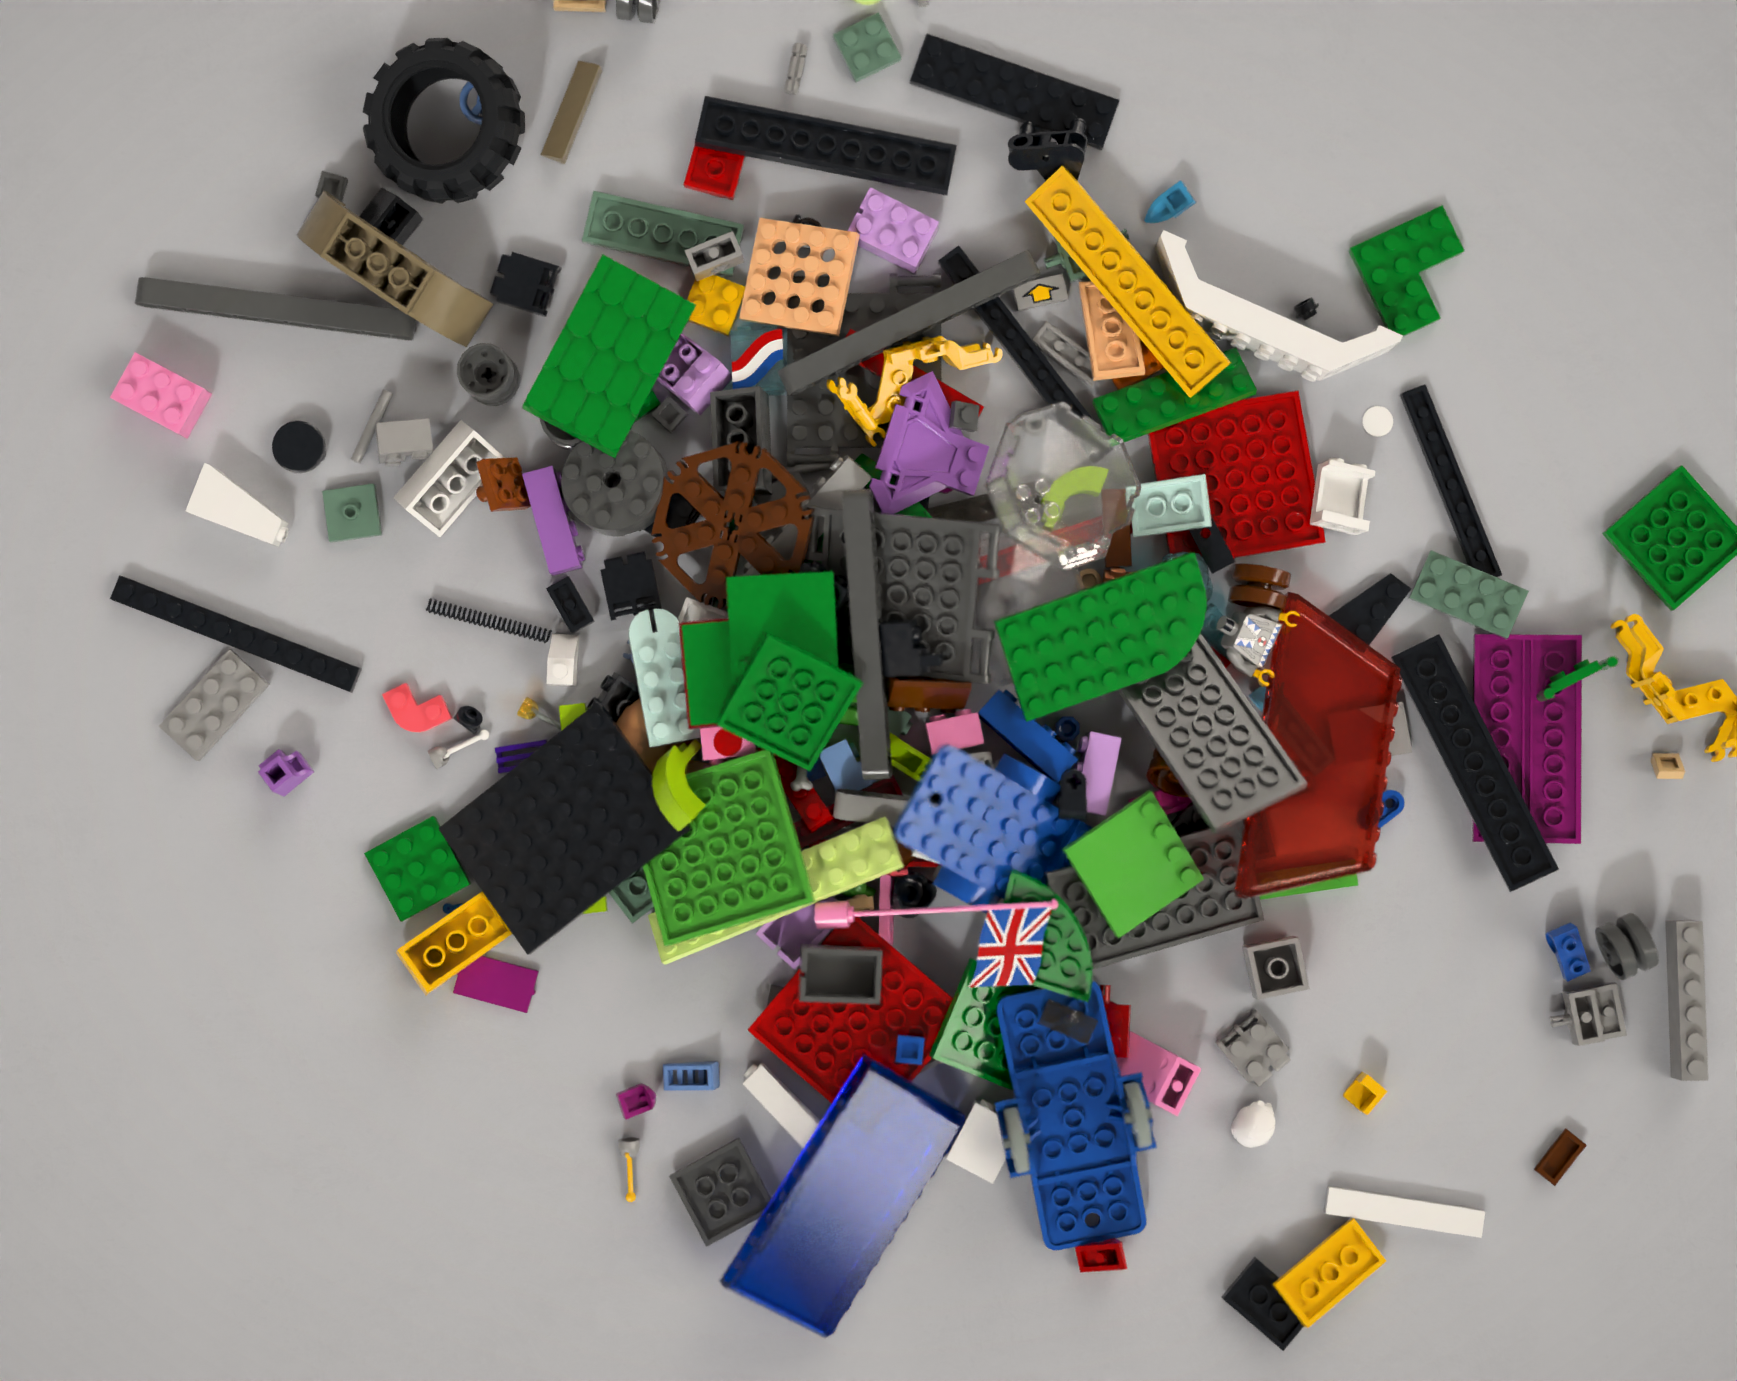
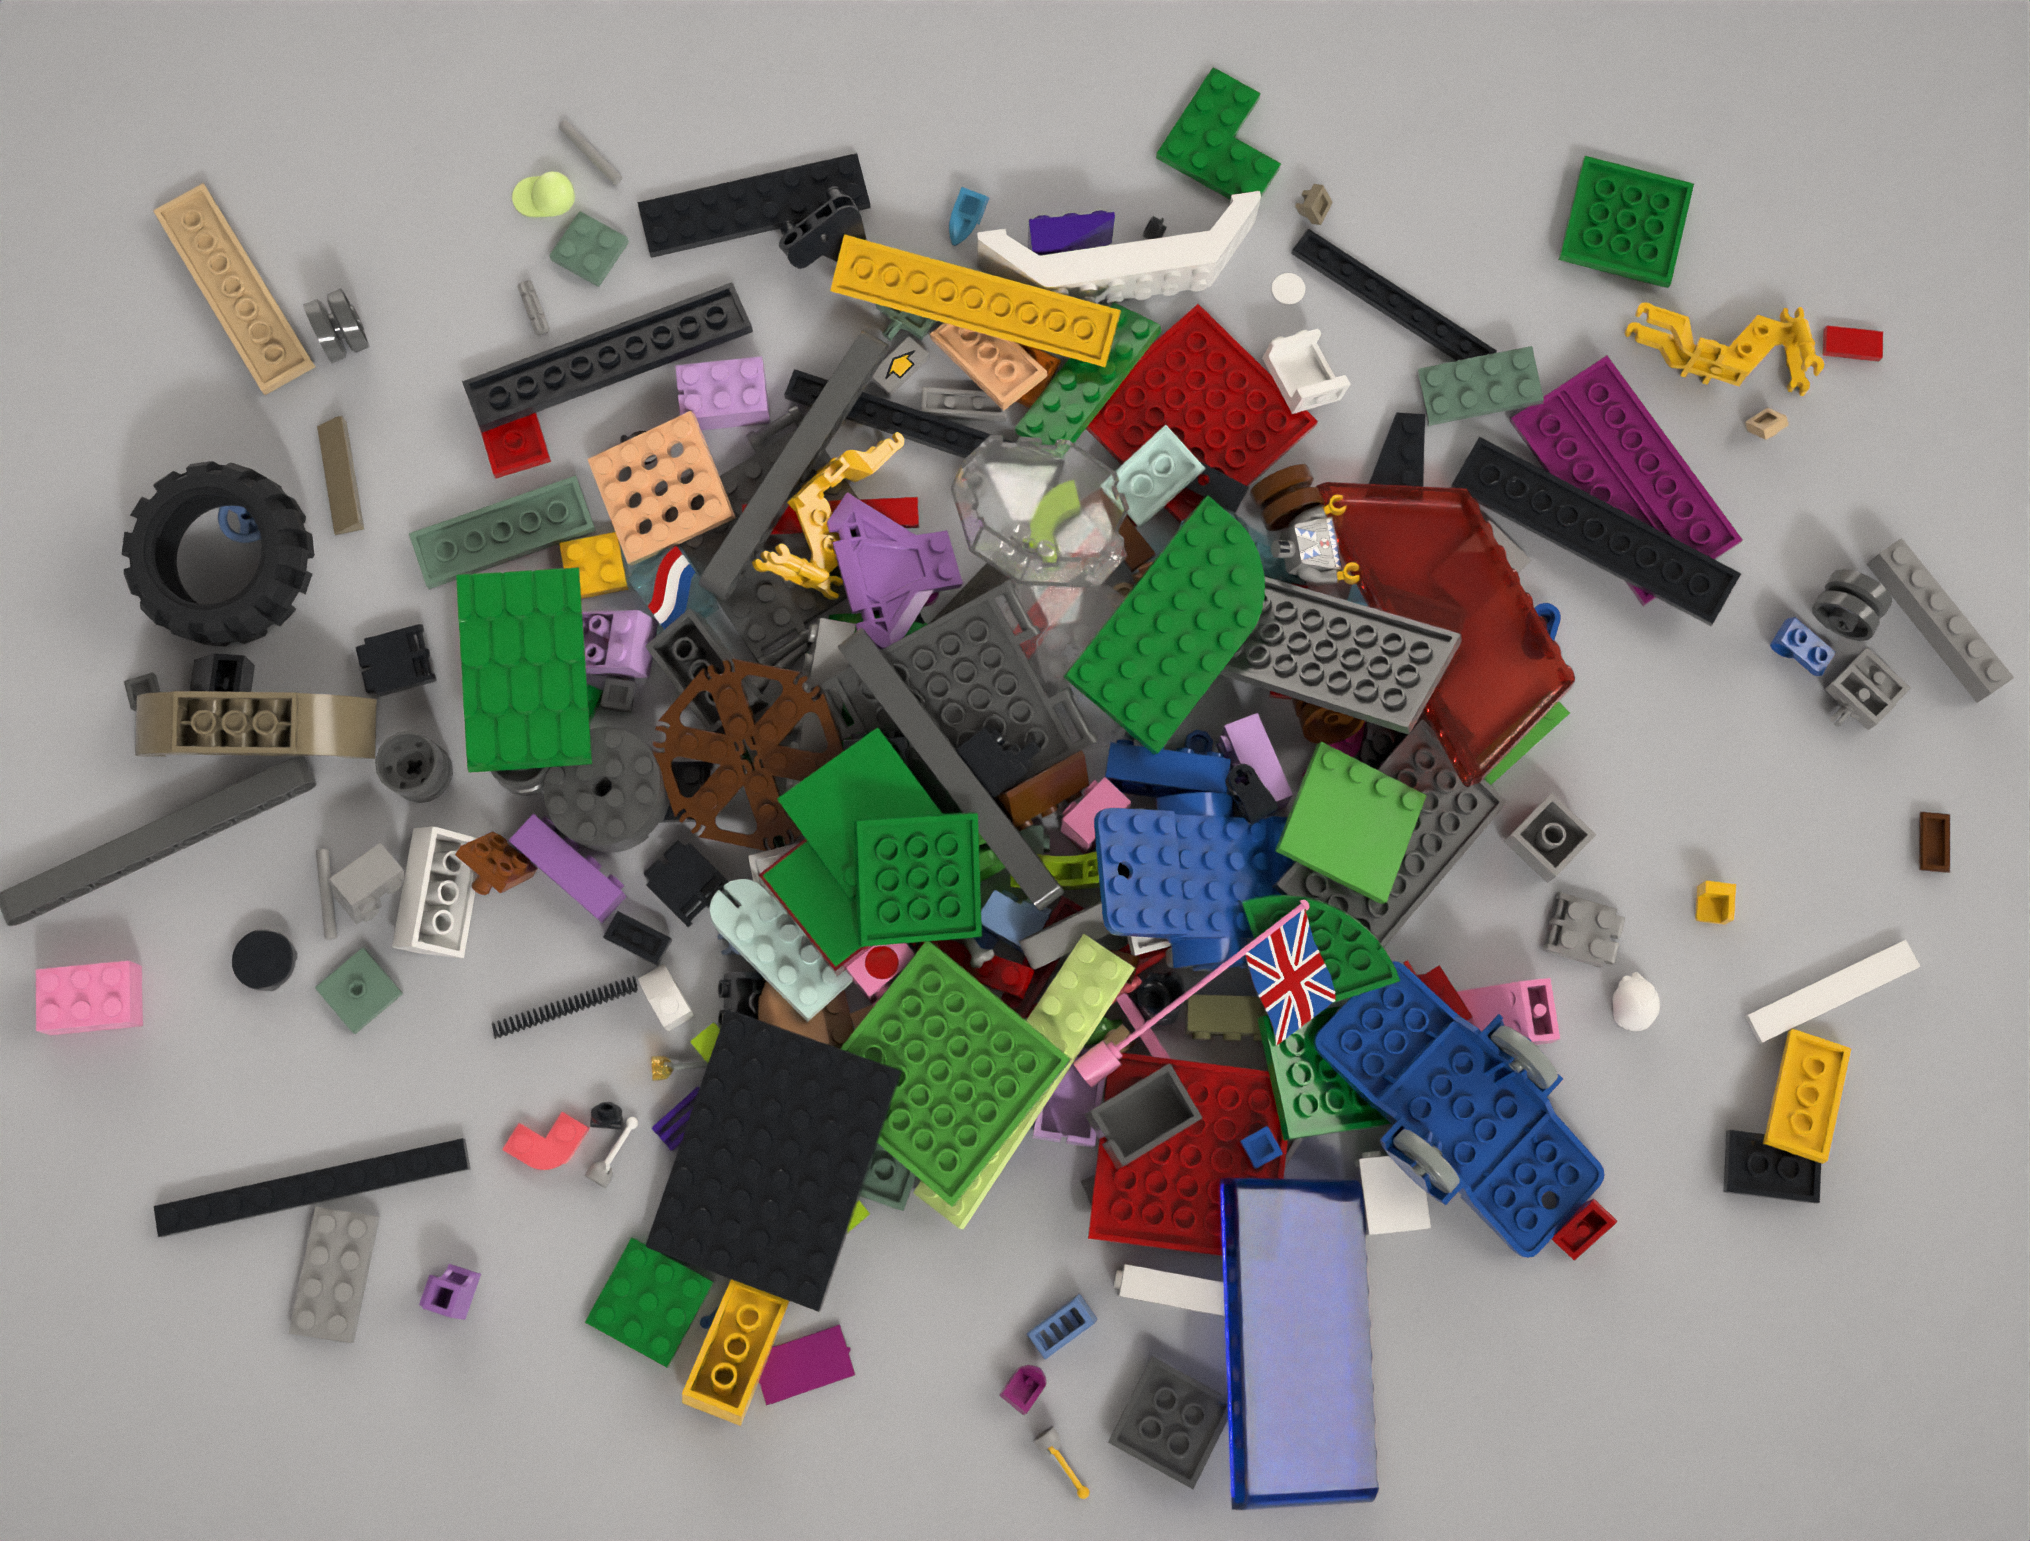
camera: 35 degrees left, 10 degrees down
(231, 506) = (231, 1062): white slope -> none
(671, 788) = (856, 1041): lime arch -> none
(714, 256) = (567, 517): light grey brick -> none
(950, 937) = (1223, 1016): none -> olive brick
(964, 416) = (904, 515): dark grey plate -> none
(1068, 1021) = (1394, 1013): clear smoke piece -> none
(1234, 274) = (1070, 232): none -> dark purple slope
(1444, 369) = (1316, 204): none -> dark tan tile
(1581, 671) = (1631, 384): green plate -> none

